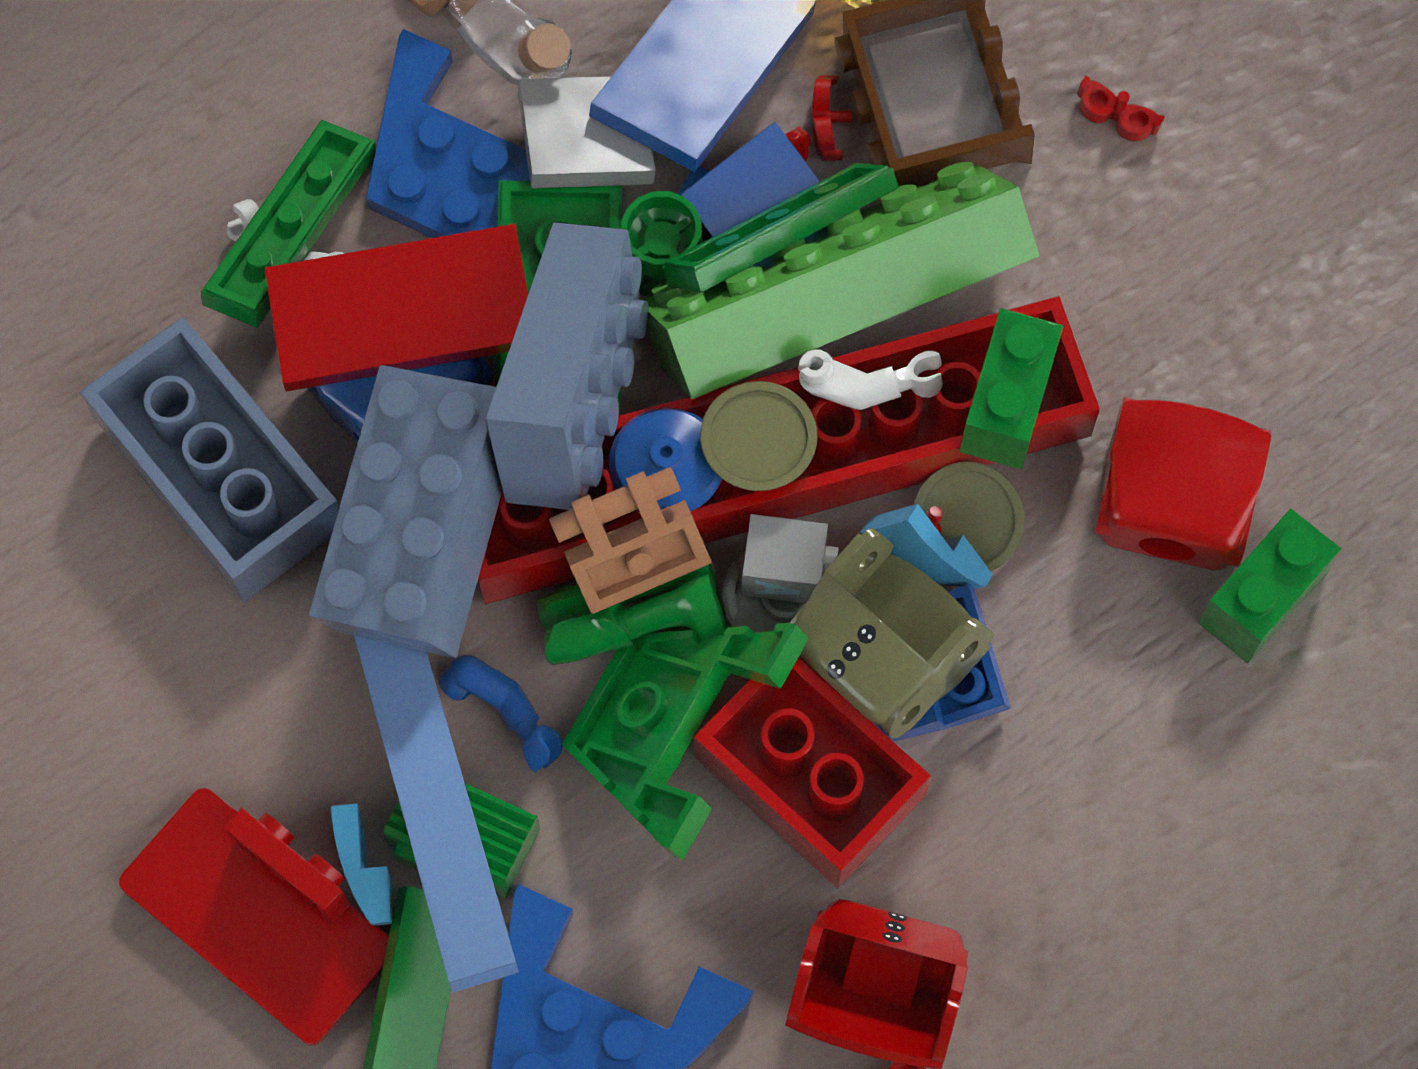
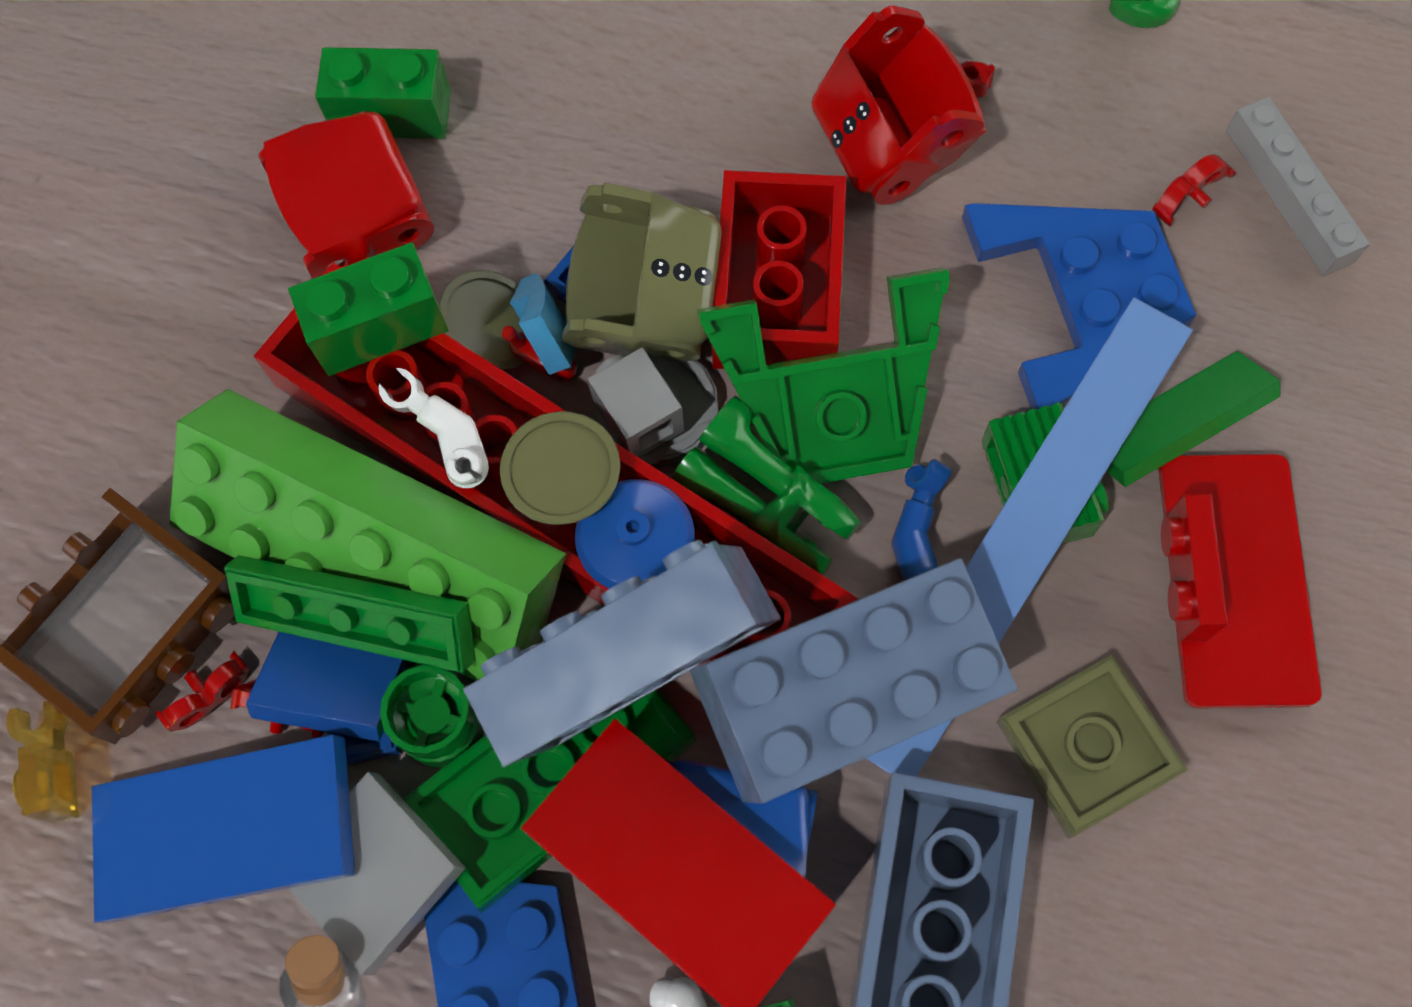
camera: 125 degrees left, 0 degrees up
(240, 694) = (1091, 746): none -> olive tile
(369, 885) = (1144, 508): dark azure slope -> none
(638, 554) = (728, 496): nougat plate -> none
(1101, 104) = (38, 459): red piece -> none

